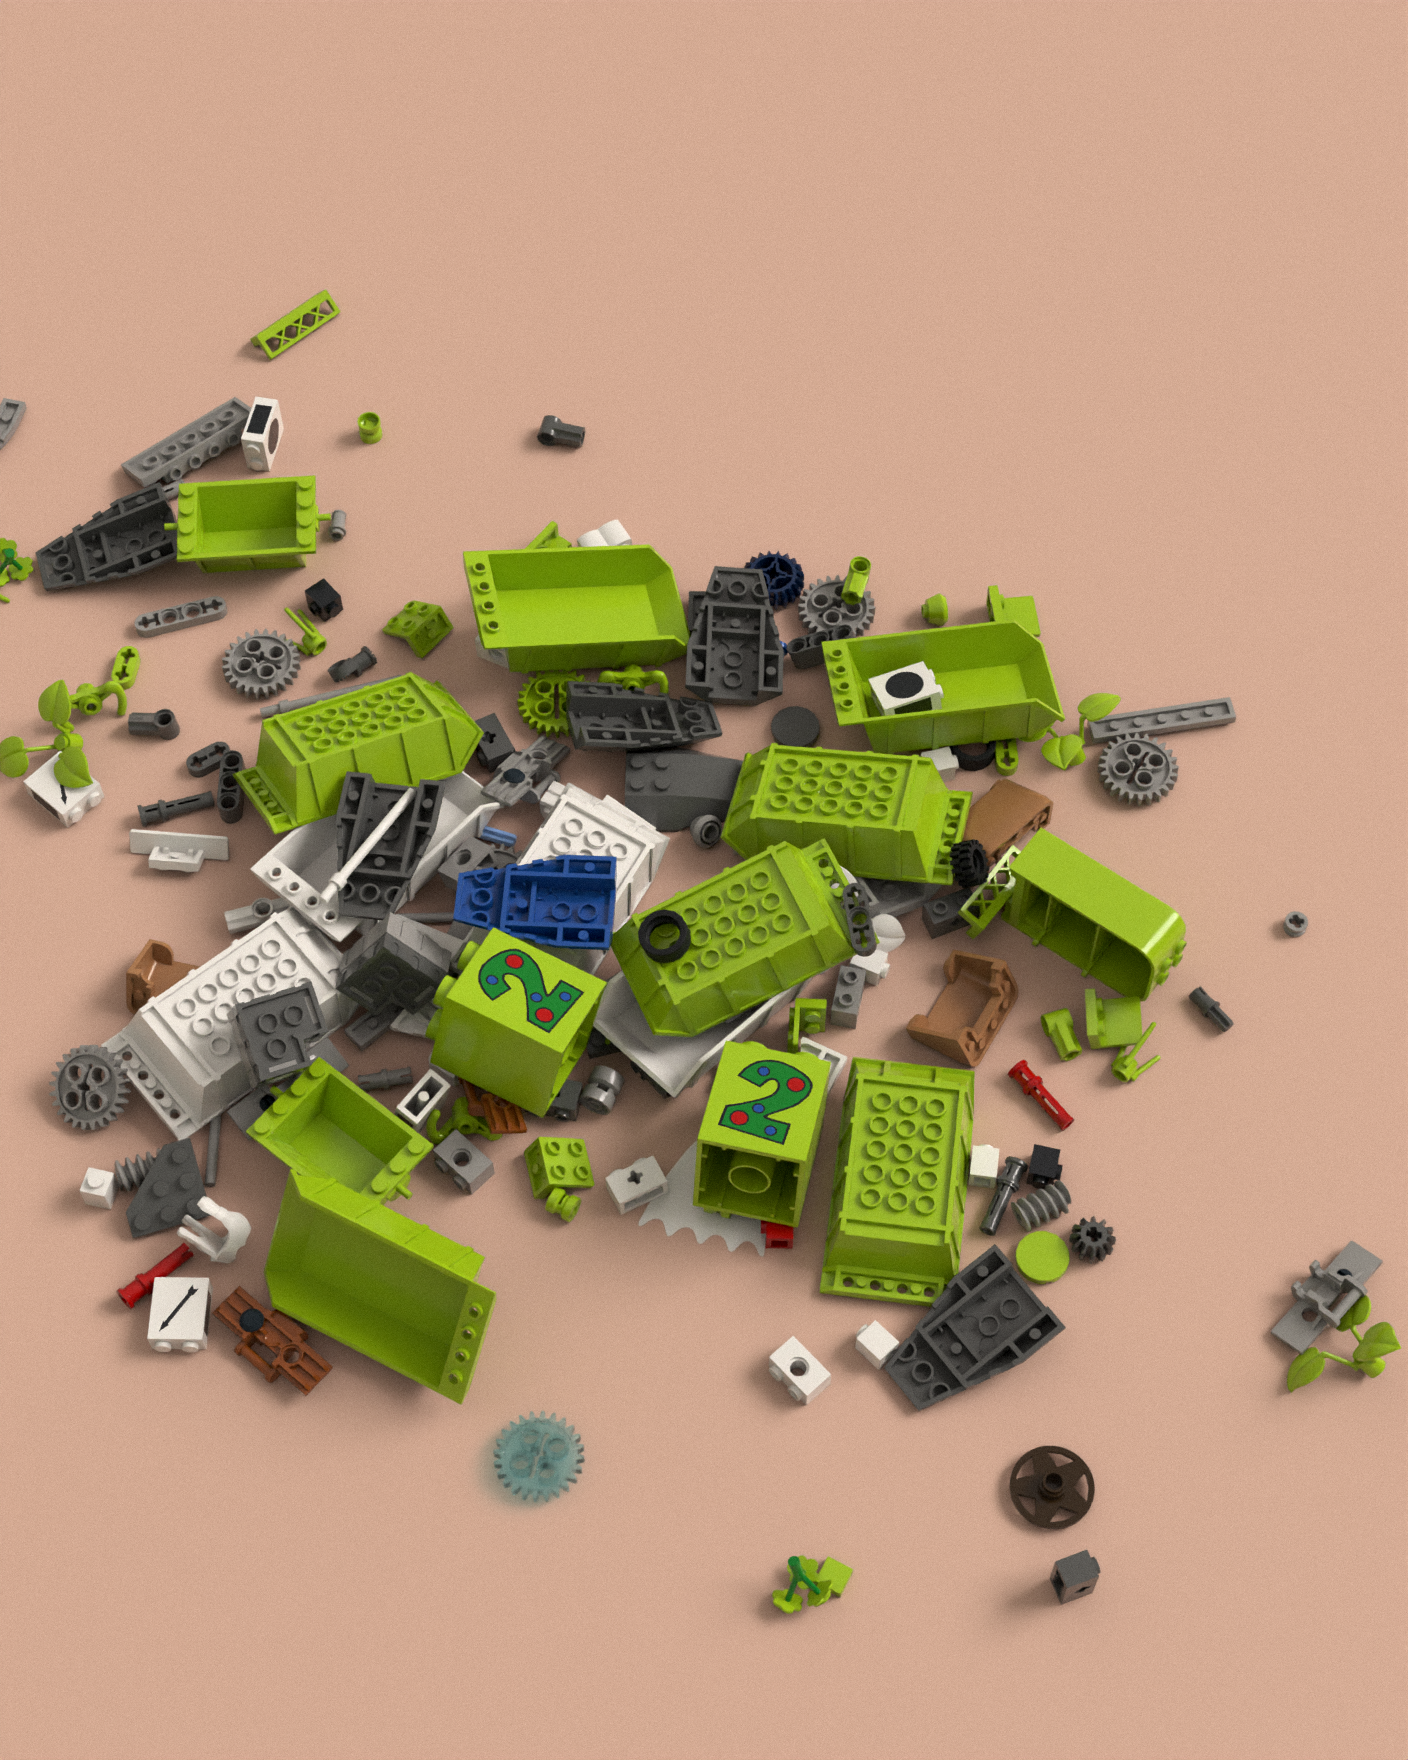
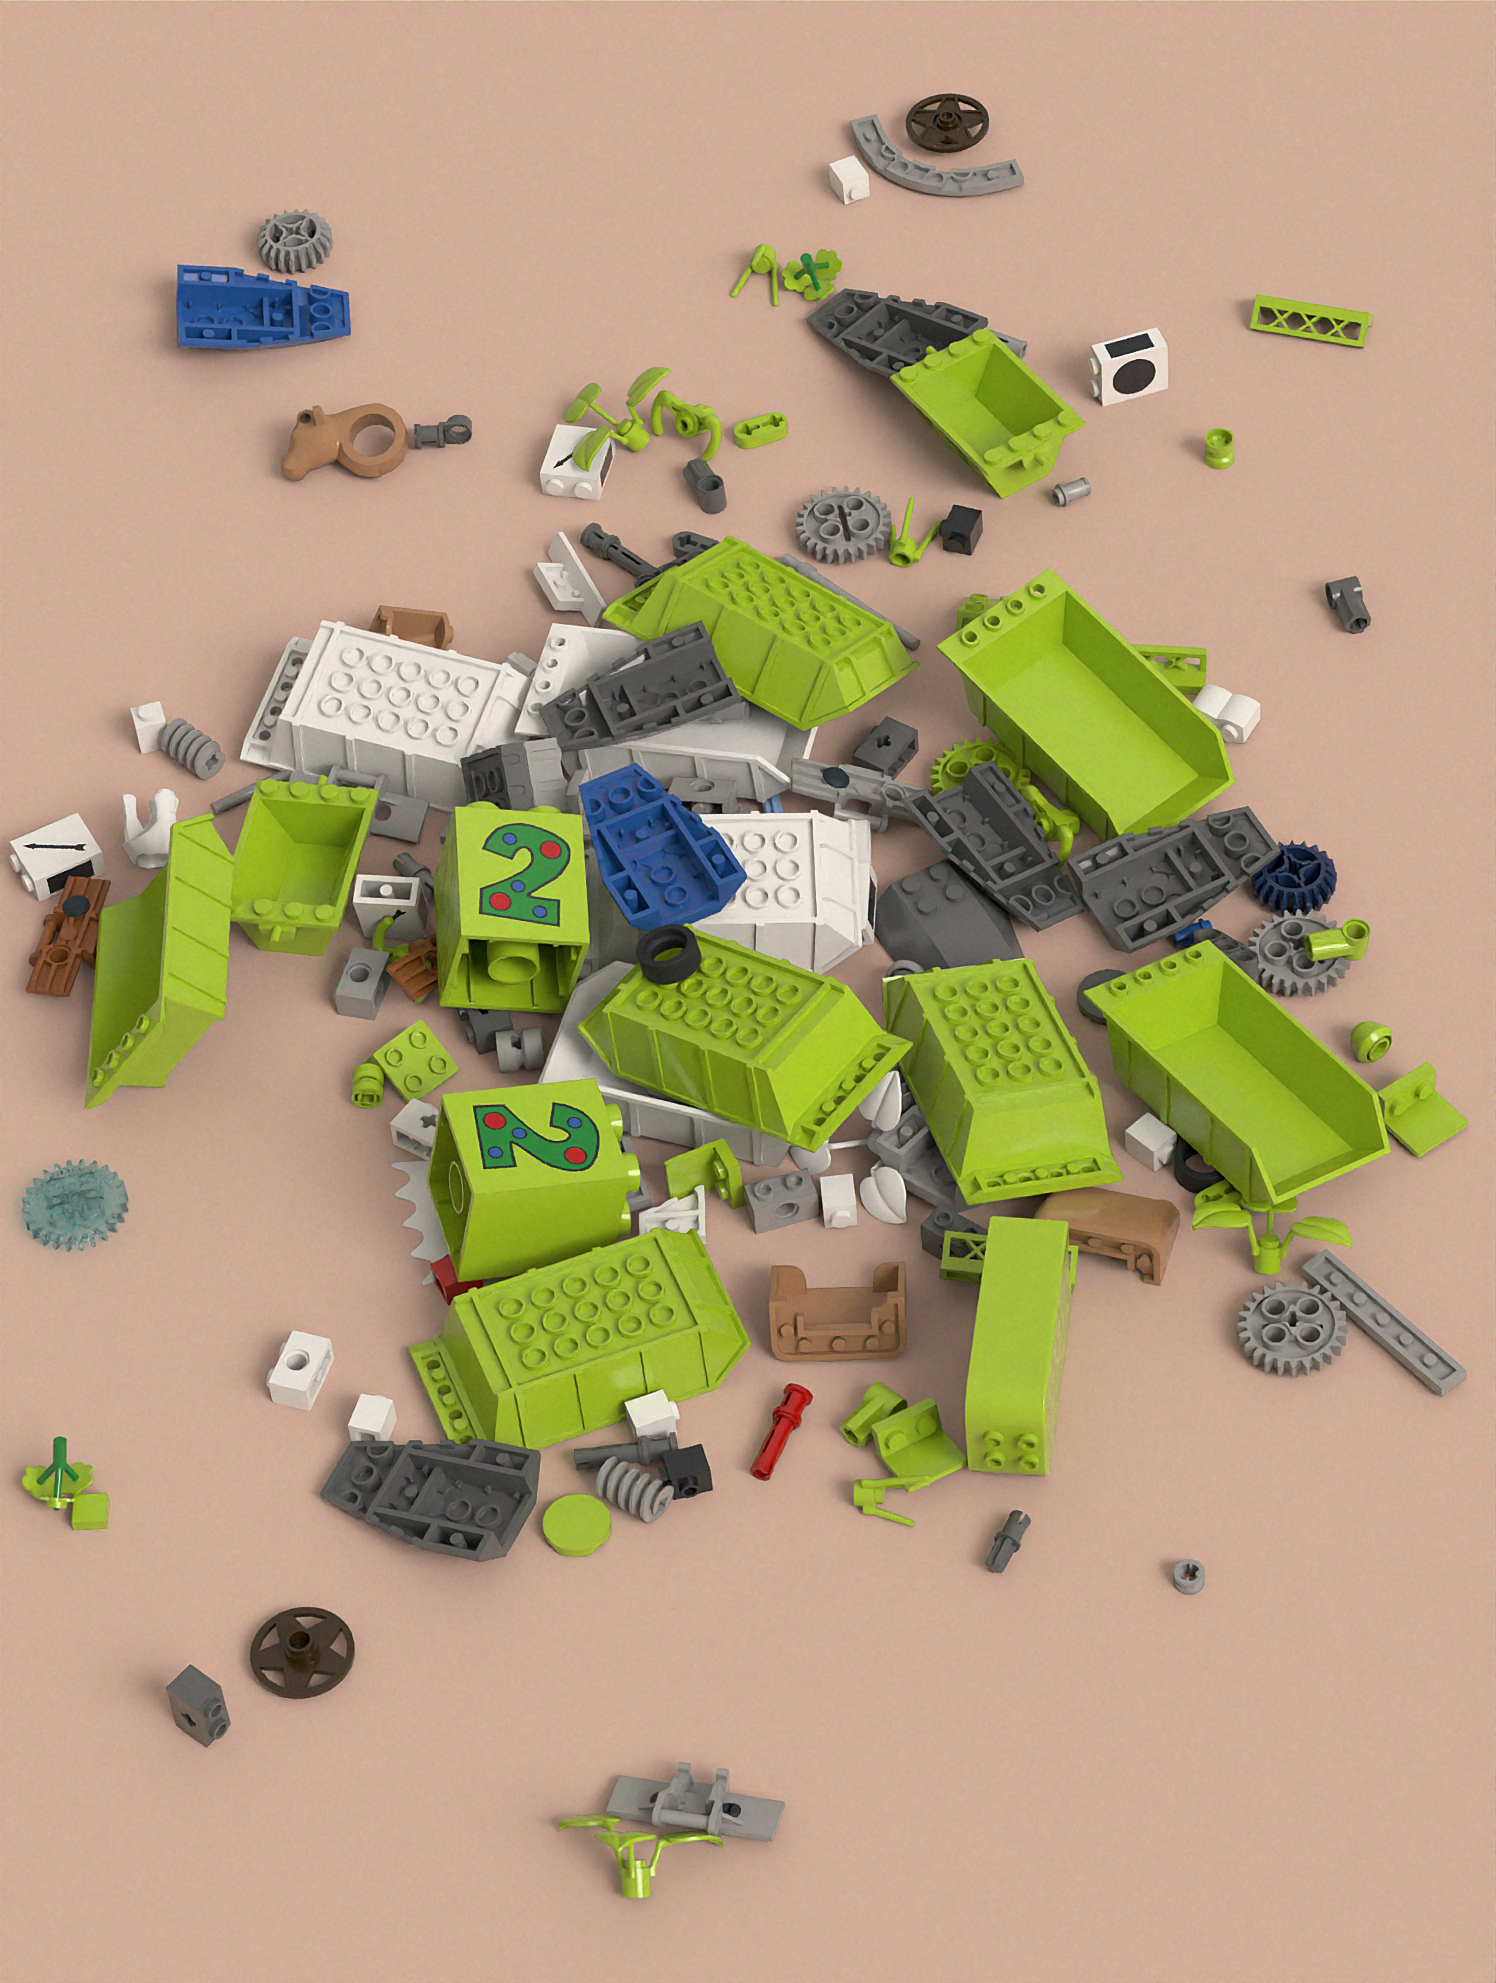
camera: 65 degrees right, 10 degrees down
(69, 1085) = (248, 657): light grey gear -> none
(144, 1283) = (55, 811): red pin -> none
(168, 1191) = (185, 768): dark grey plate -> none
(180, 613) = (883, 454): light grey beam -> none
(190, 445) = (1064, 323): light grey plate -> none
(274, 1033) = (360, 728): dark grey piece -> none
(339, 879) = (568, 683): white bar -> none
(352, 665) = (900, 597): dark grey connector -> none
(866, 928) = (795, 1131): dark grey beam -> none
(906, 690) = (1210, 1055): white brick -> none
(969, 863) = (997, 1189): black tyre -> none
(1082, 1239) = (624, 1556): dark grey gear -> none

